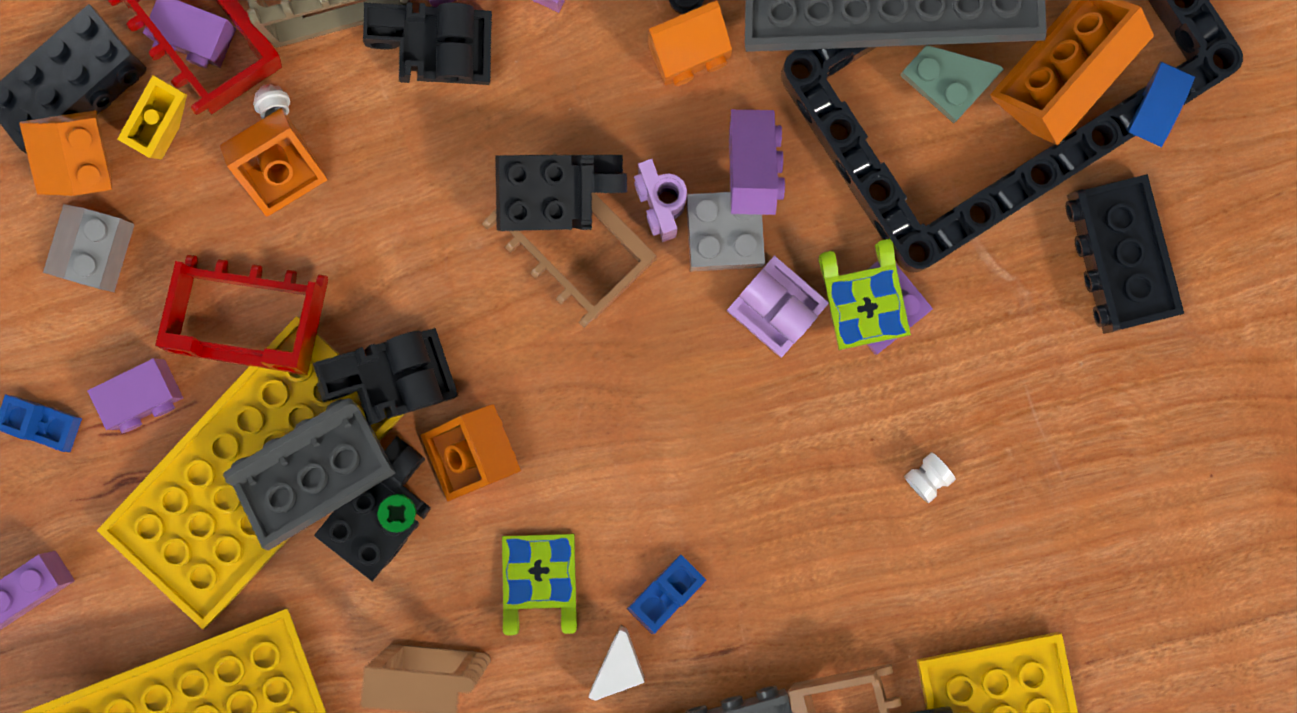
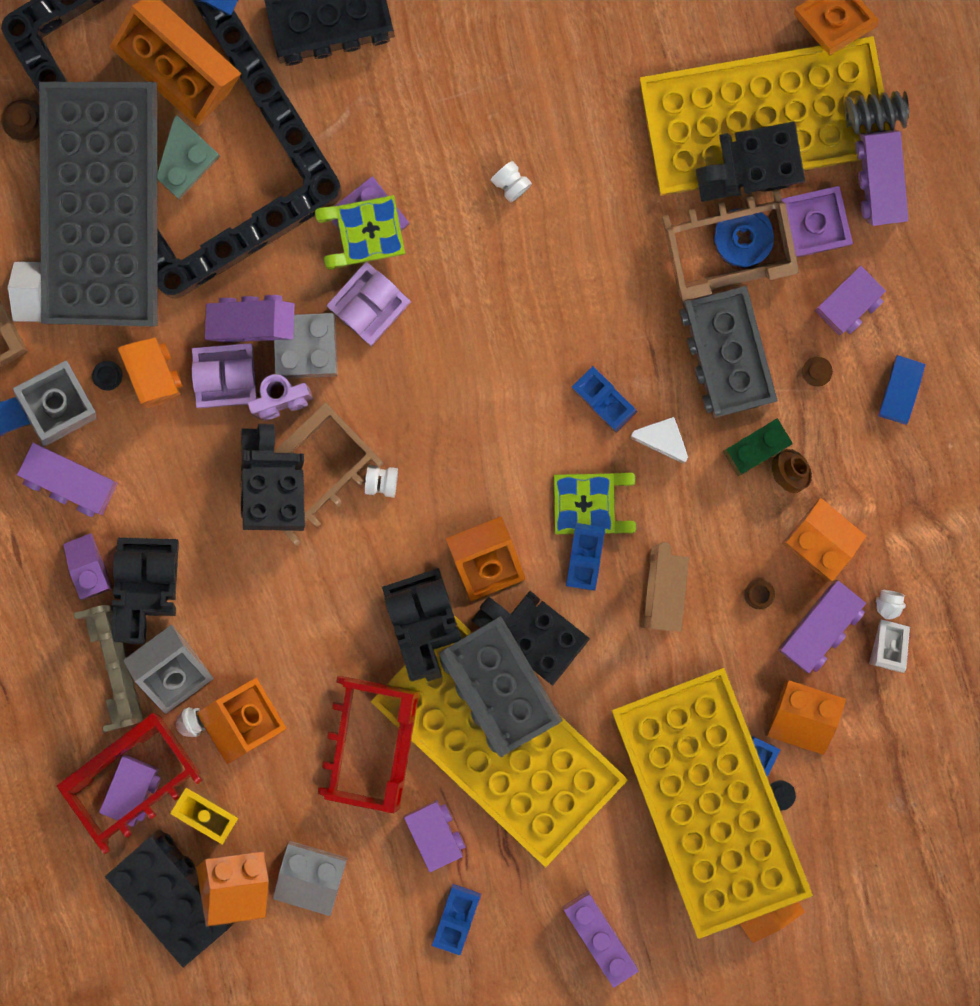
camera: 85 degrees left, 0 degrees up
(334, 72) = (168, 669): none -> light grey slope
(402, 510) = (533, 622): green wheel -> none
(474, 573) = (585, 556): none -> blue slope
(563, 333) = (388, 481): none -> white wheel
(688, 134) = (223, 375): none -> lavender plate

